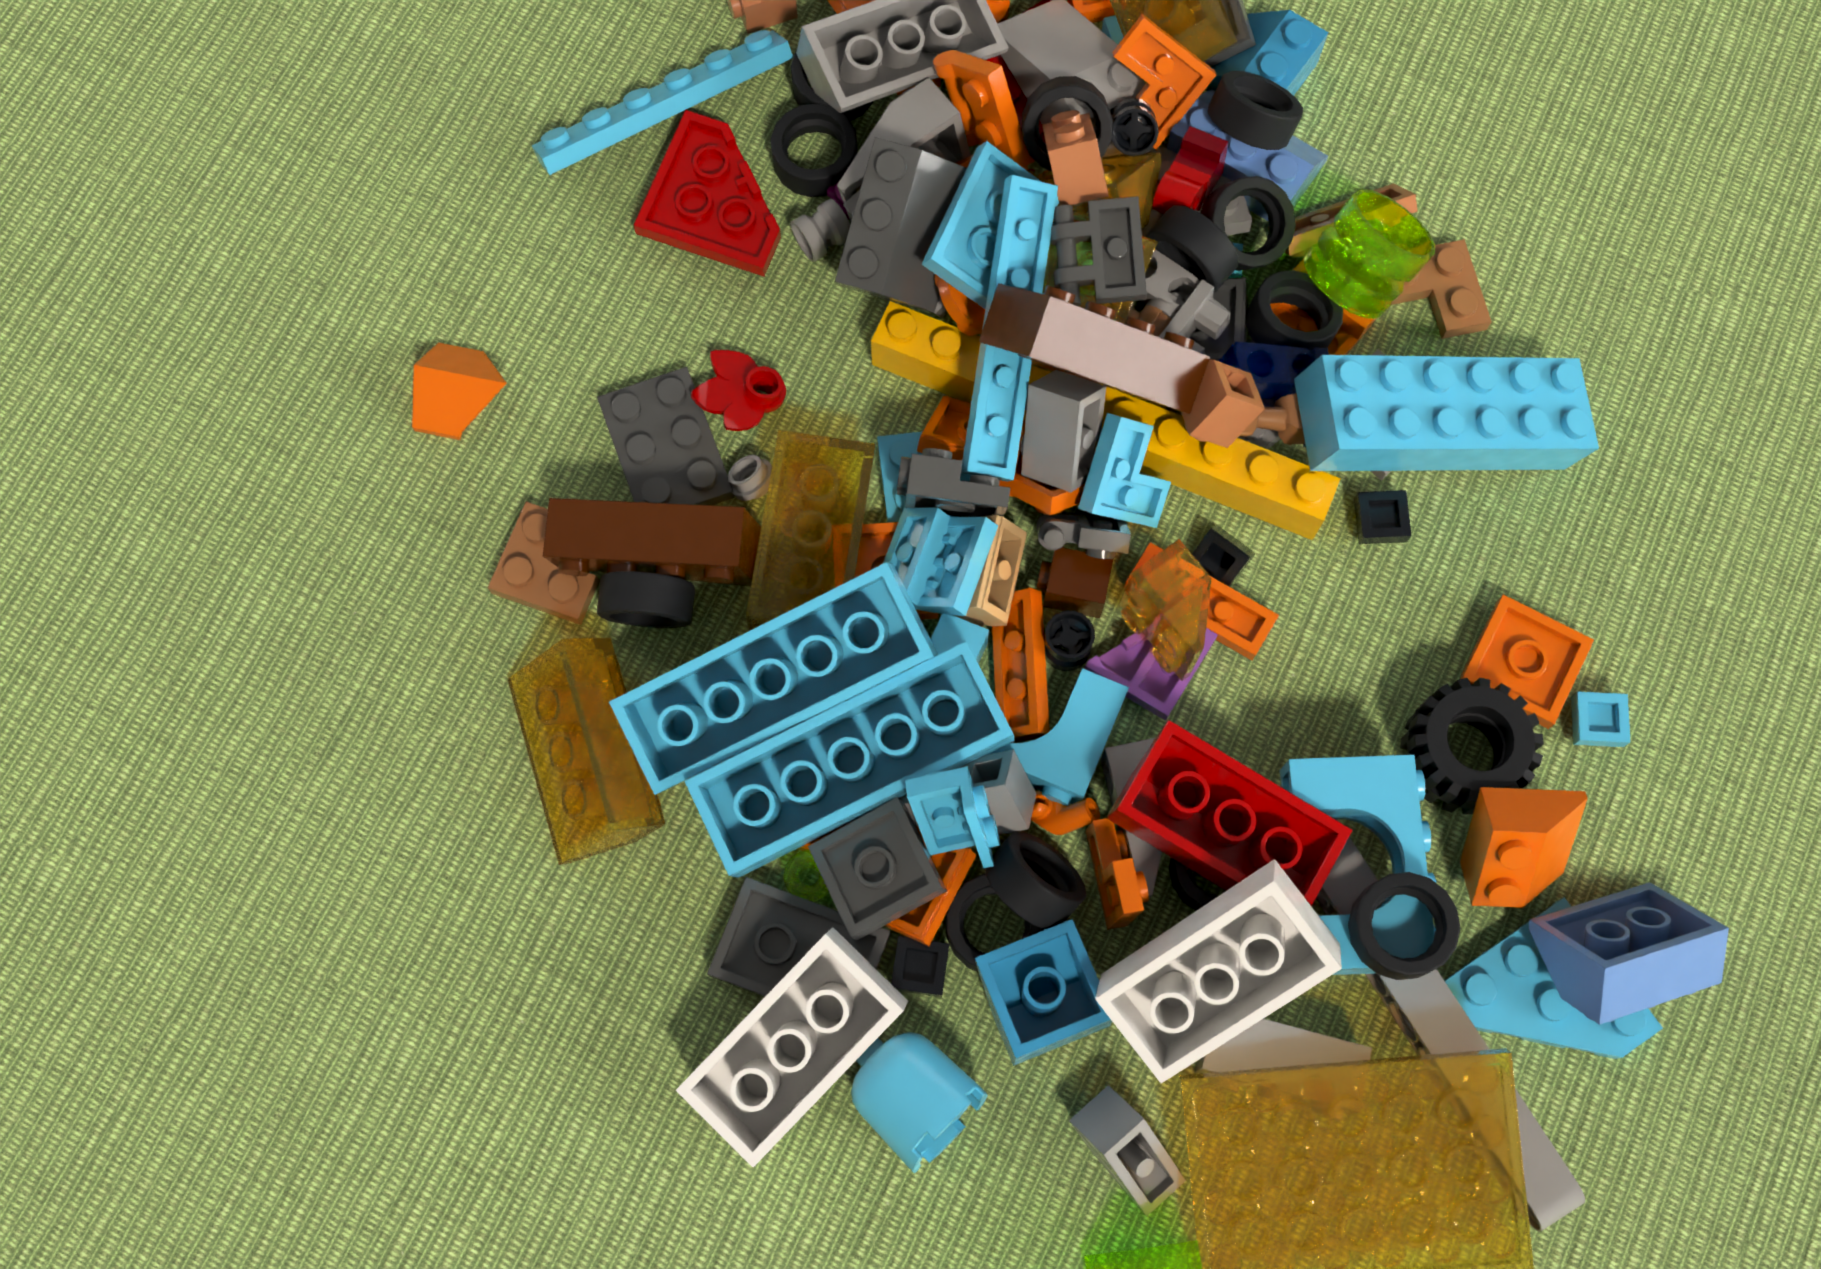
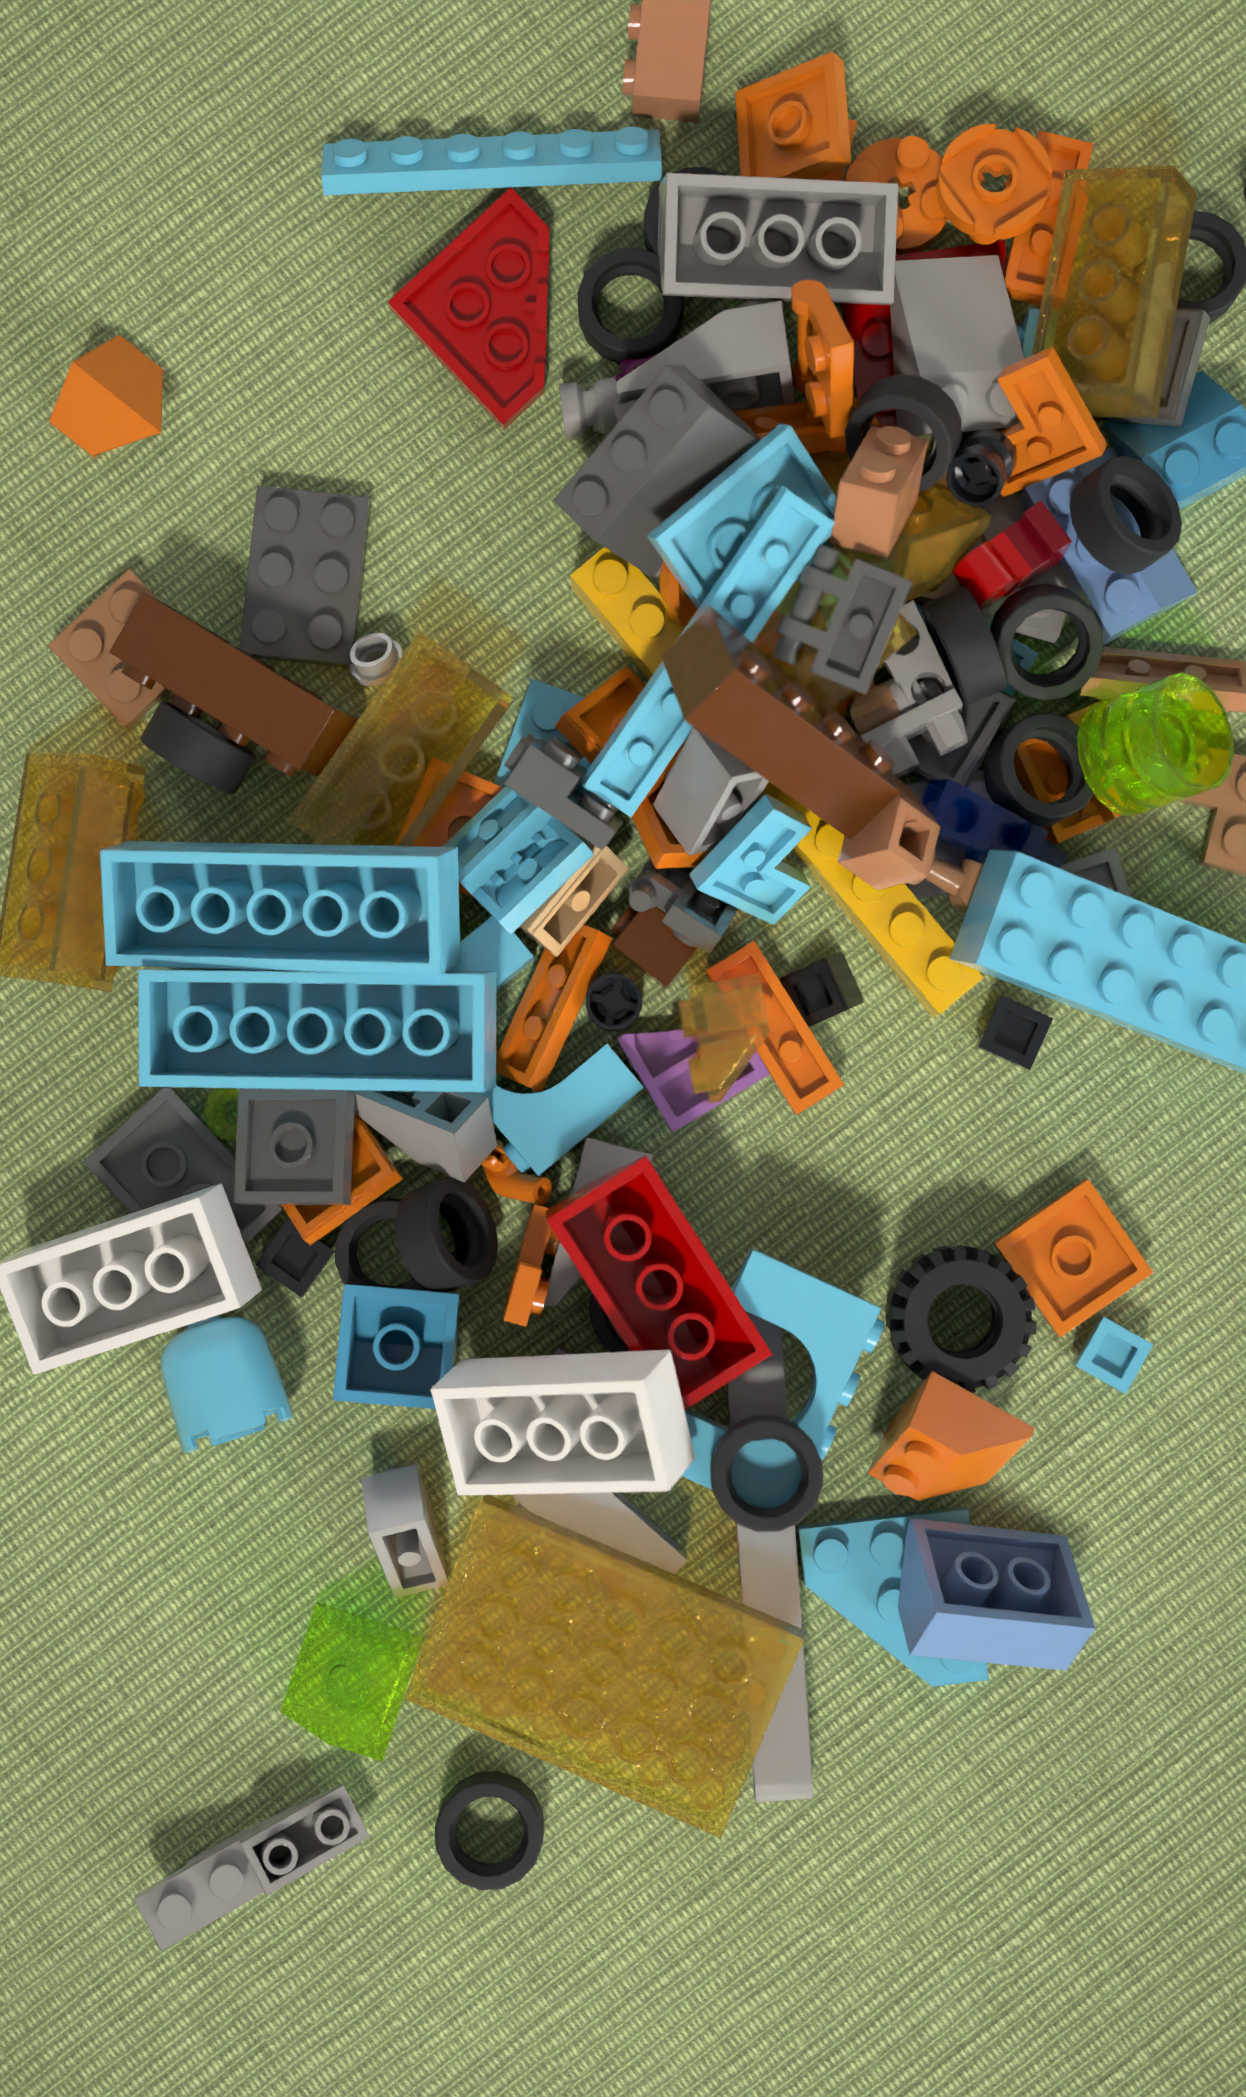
camera: 30 degrees right, 15 degrees up
(735, 390) = (402, 553): red plate -> none
(953, 813) = (390, 1136): medium azure bracket -> none

